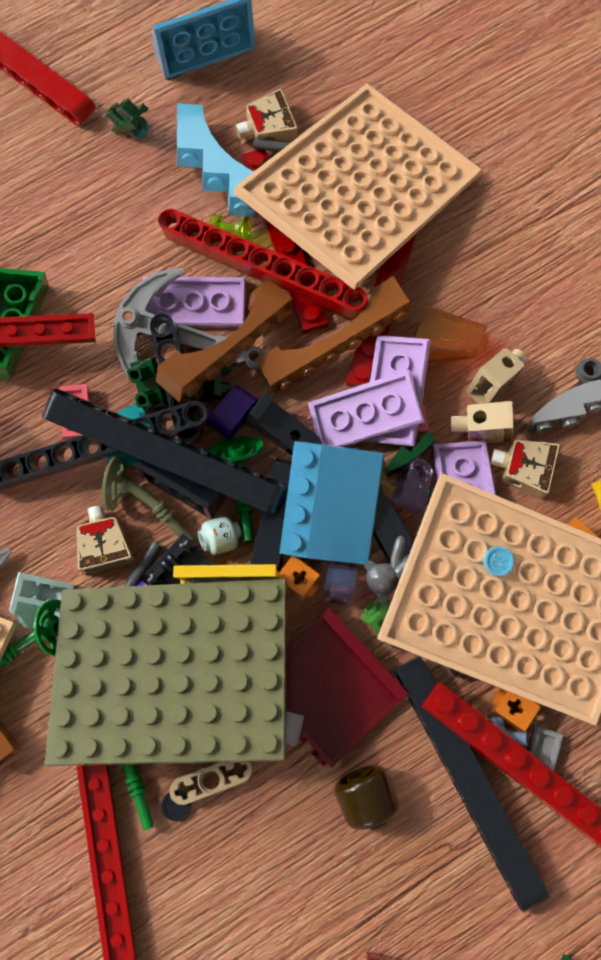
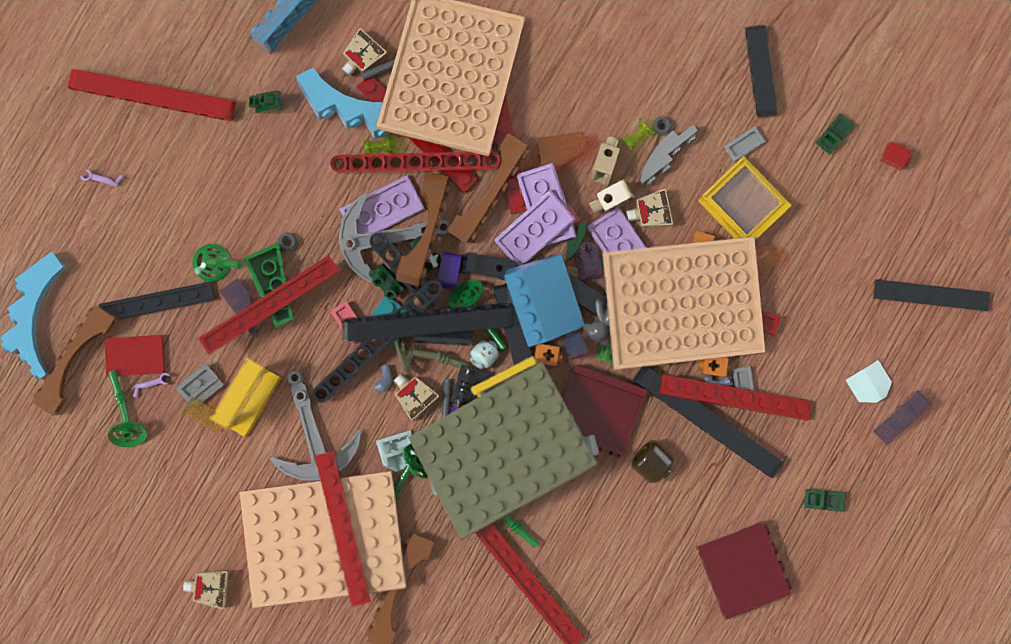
camera: 30 degrees left, 10 degrees up
(58, 278) = (283, 237): none -> dark grey plate
(79, 506) = (386, 381): none -> sand blue arm
(175, 811) = (544, 525): black piece -> none
(192, 795) = (544, 507): tan beam -> none
(498, 561) = (662, 286): medium azure piece -> none
(564, 363) = (643, 130): none -> clear neon green piece

